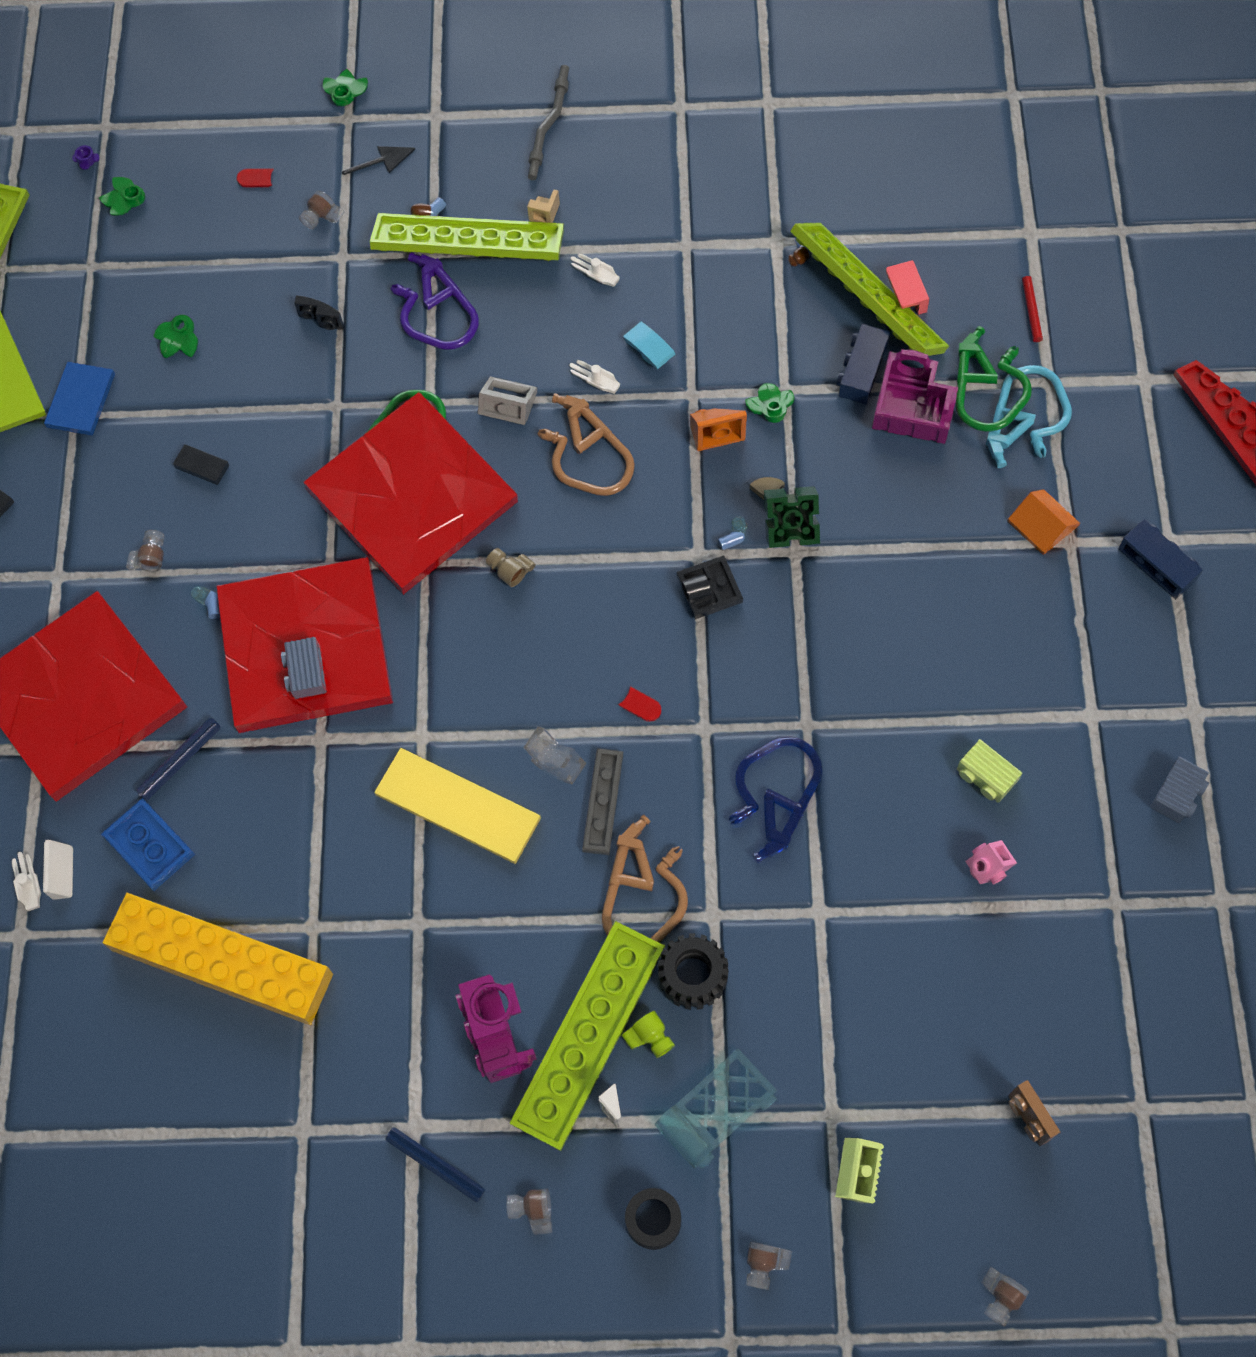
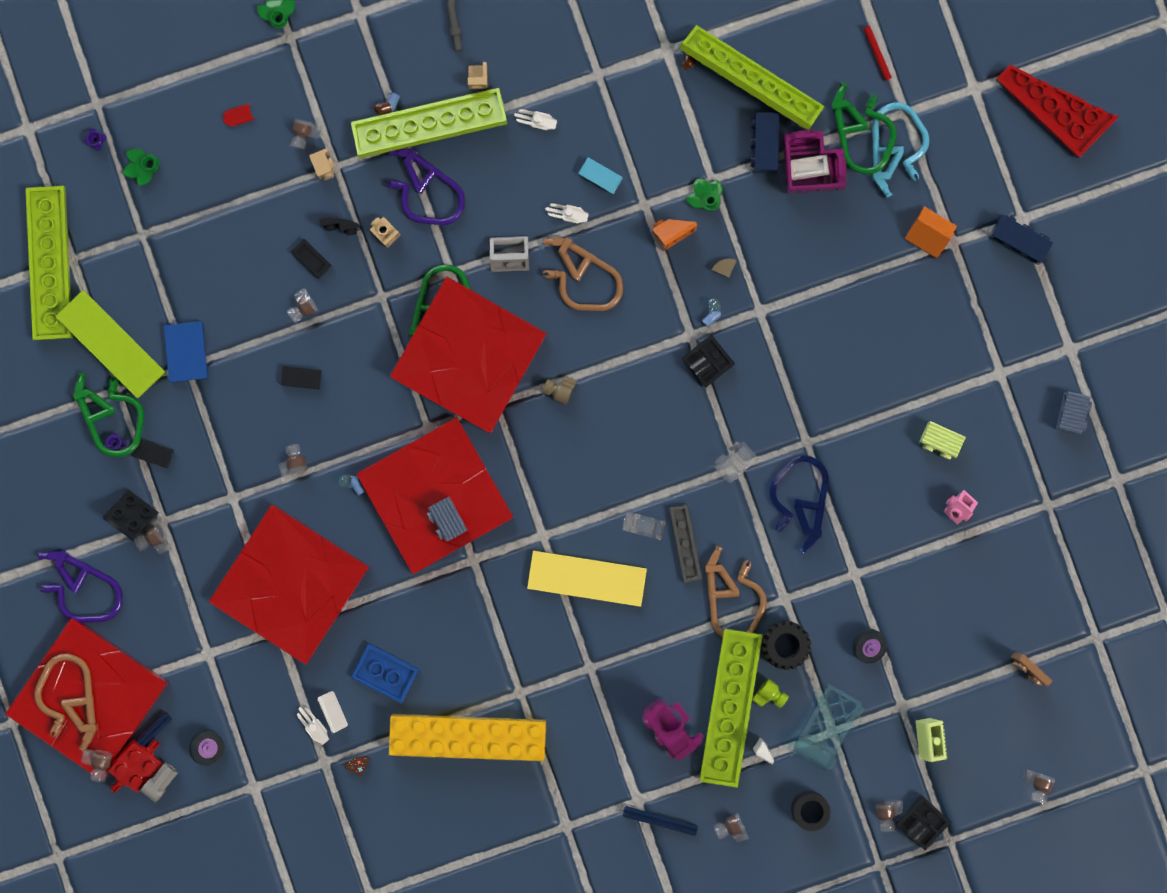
camera: 20 degrees left, 20 degrees up
(60, 951) = (358, 764): none -> reddish brown tile
(177, 339) = (238, 280): green plate -> none
(178, 759) = (380, 607): dark blue axle -> none
(240, 387) = (304, 307): none -> clear piece
(271, 342) = (311, 258): none -> black tile
(327, 245) = (322, 164): none -> tan brick
(368, 335) = (389, 236): none -> tan brick
(390, 155) = (338, 62): black piece -> none
(641, 705) = (688, 464): red piece -> none
(703, 717) = (735, 462): none -> clear brick
(792, 516) = (752, 292): dark green brick -> none
(810, 1011) = (869, 646): none -> black wheel
(813, 1294) = (923, 822): none -> black plate
(908, 286) = (780, 66): coral panel -> none
(909, 400) = (810, 167): none -> white tile

